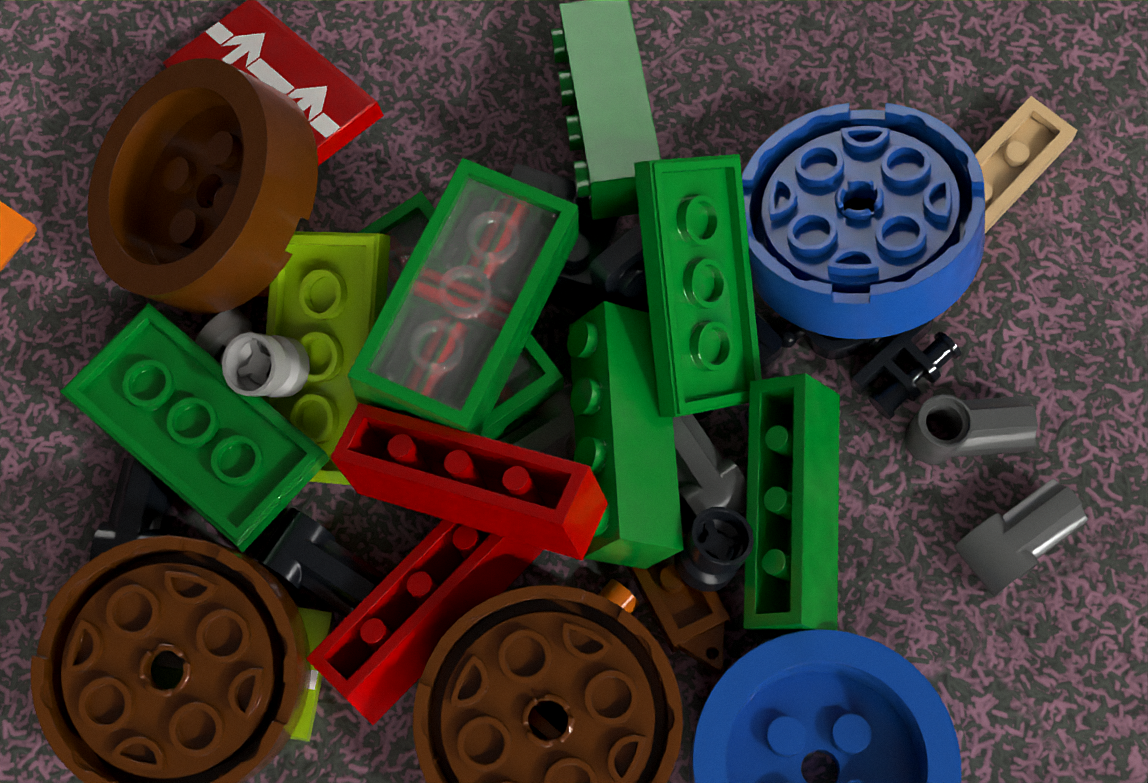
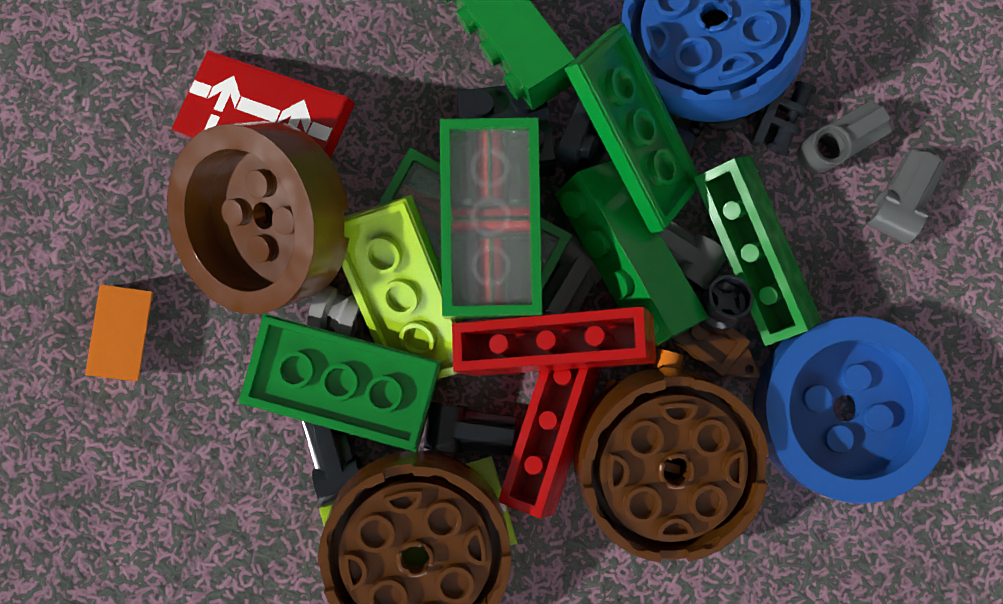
camera: 25 degrees left, 15 degrees up
(265, 365) = (370, 322): light grey wheel -> none

